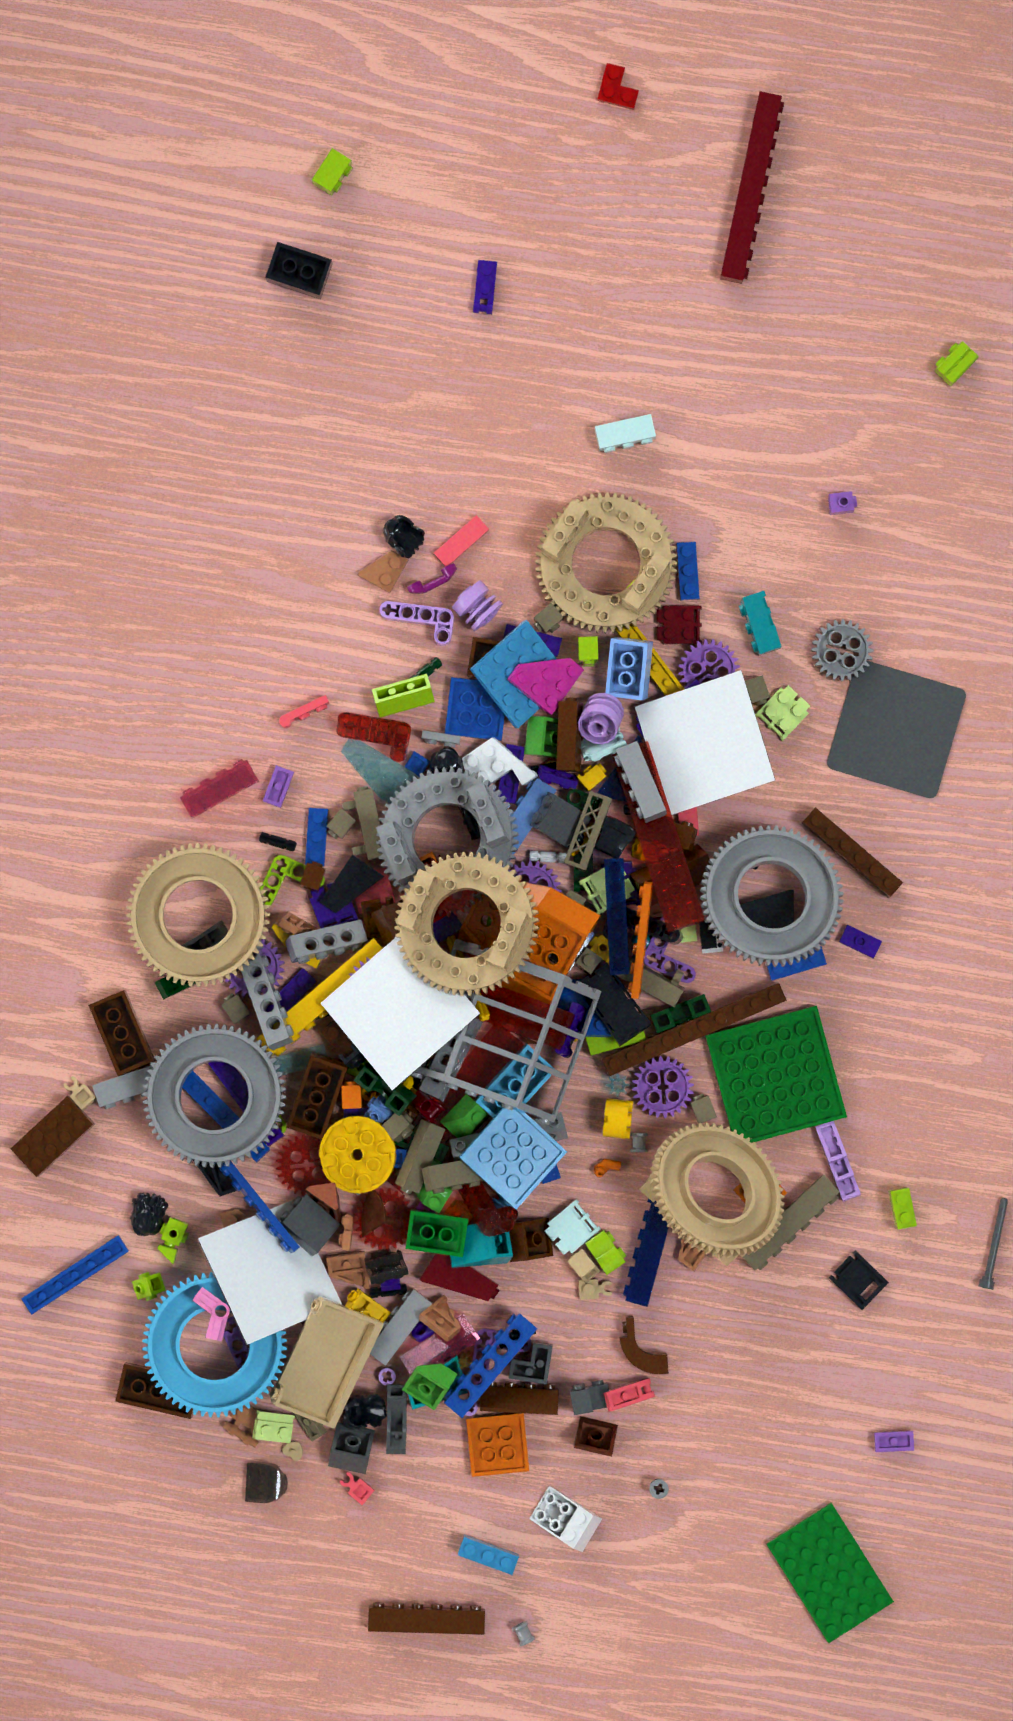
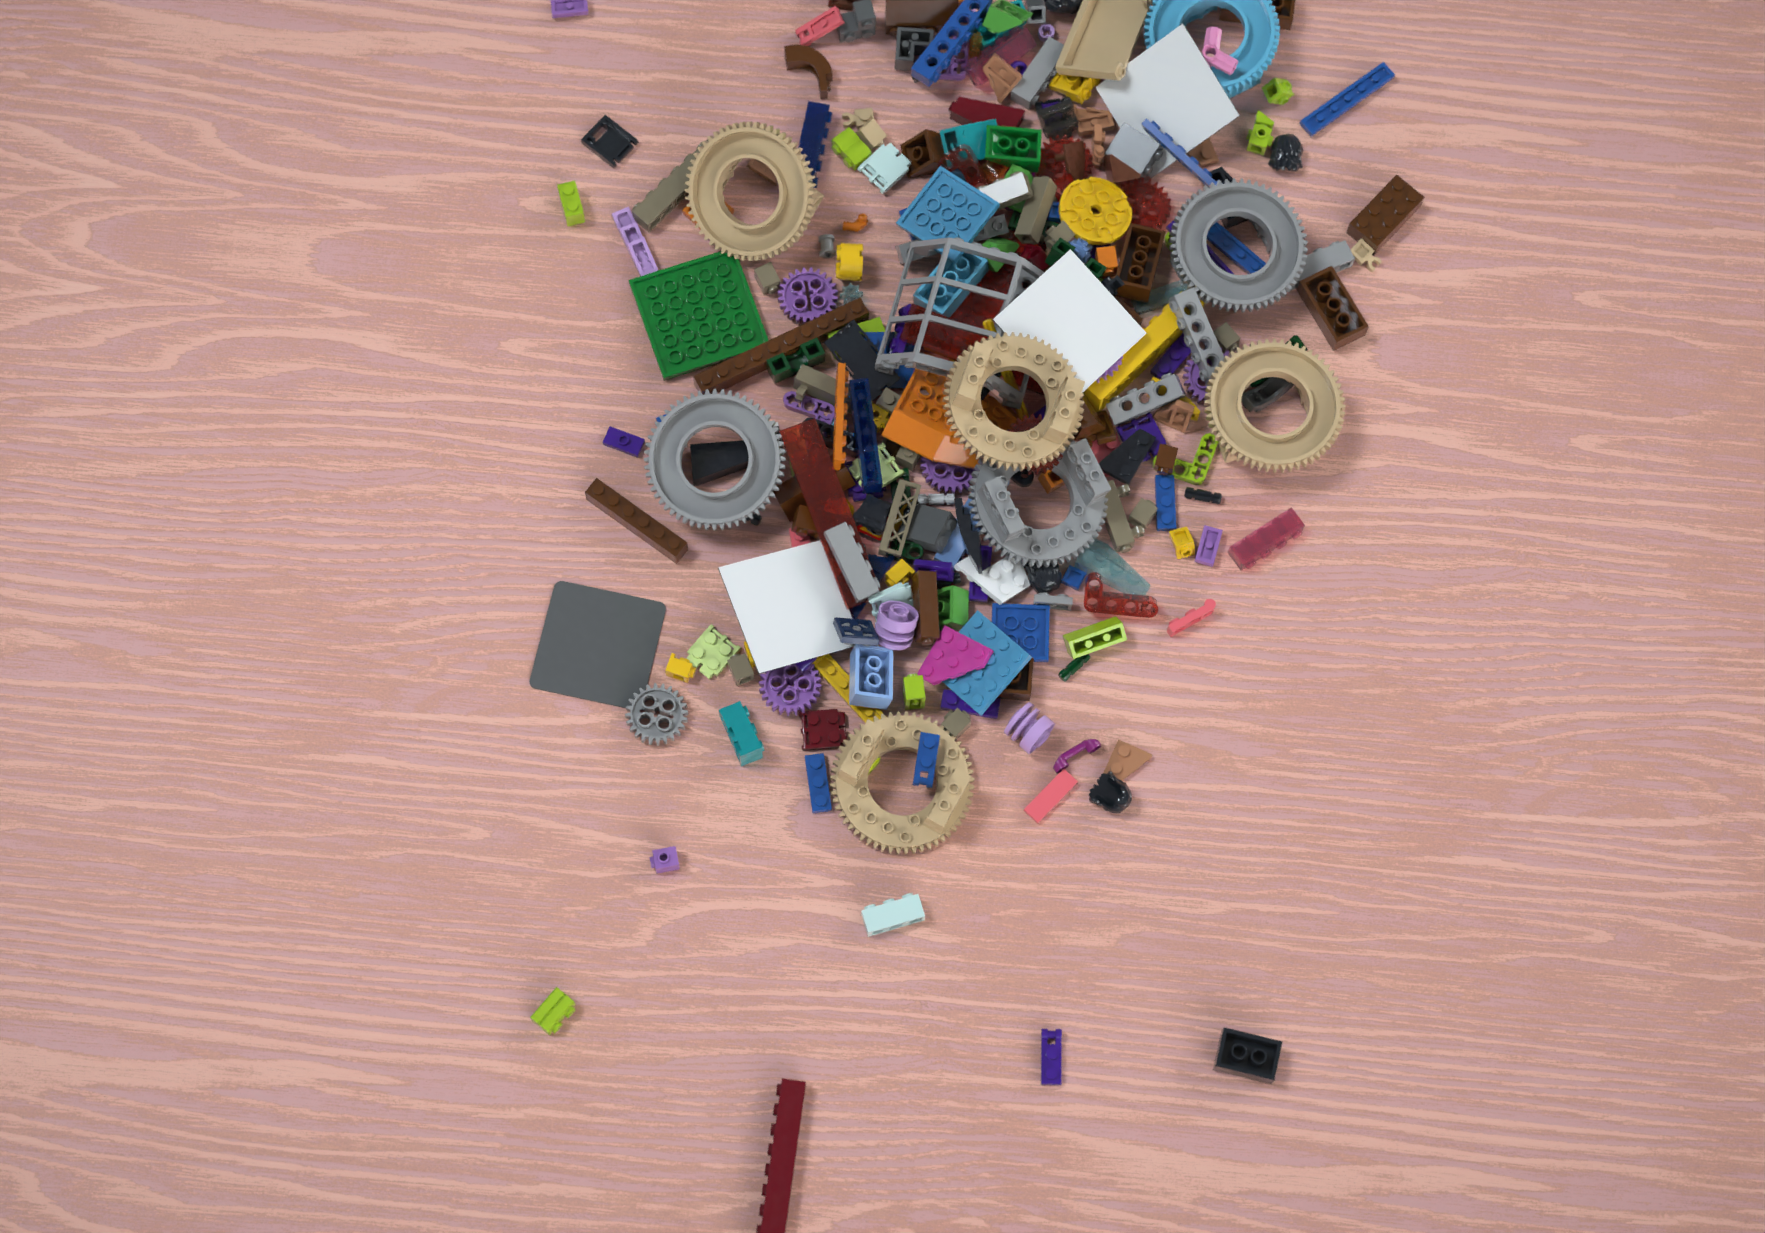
camera: 170 degrees right, 15 degrees down
(304, 792) = (1182, 542): none -> yellow bracket
(332, 172) = (1224, 1164): lime brick -> none
(416, 617) = (1087, 713): lavender beam -> none
(518, 796) = (970, 538): none -> black slope
(581, 577) = (926, 759): none -> blue plate
(641, 712) = (856, 631): none -> dark blue piece
(816, 695) = (680, 668): none -> yellow brick
(987, 1280) = (487, 146): dark grey piece -> none

